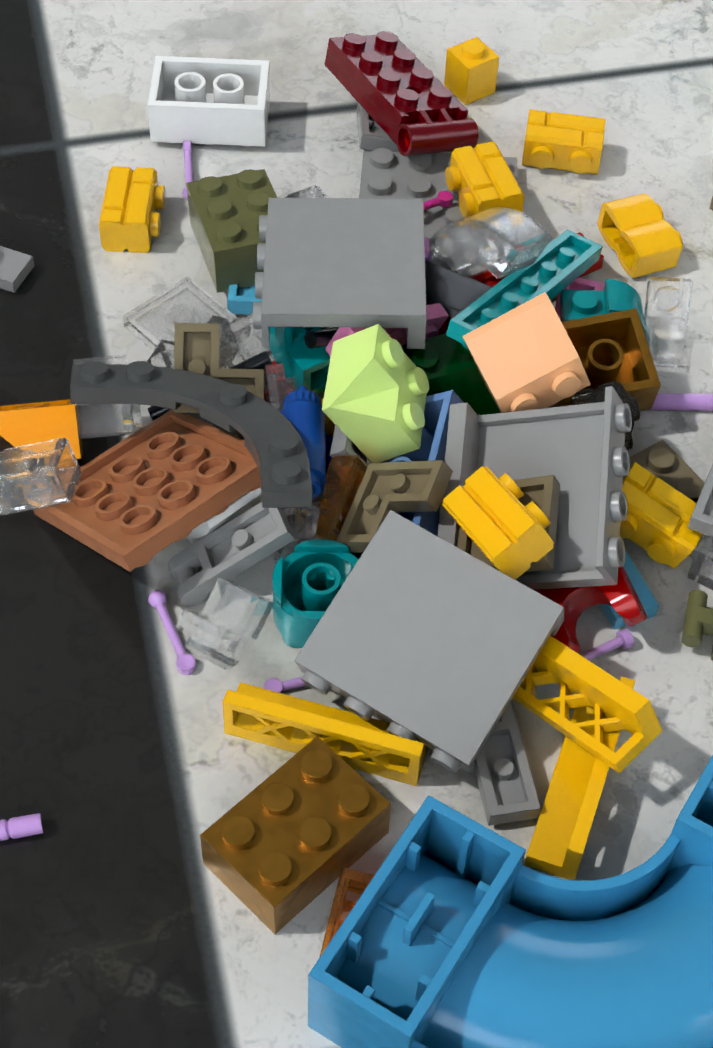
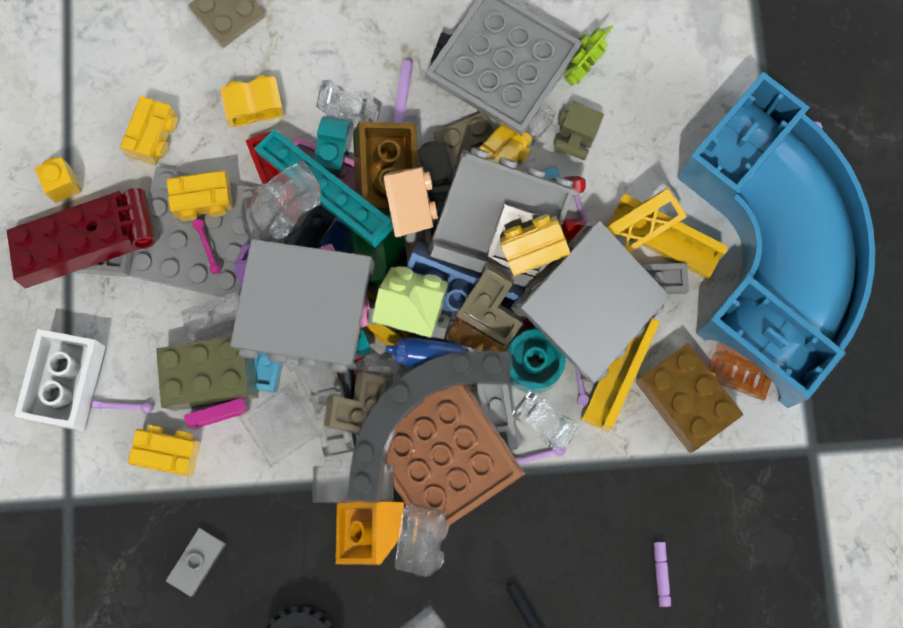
camera: 80 degrees left, 25 degrees up
(188, 250) = (216, 413): none -> dark pink tile

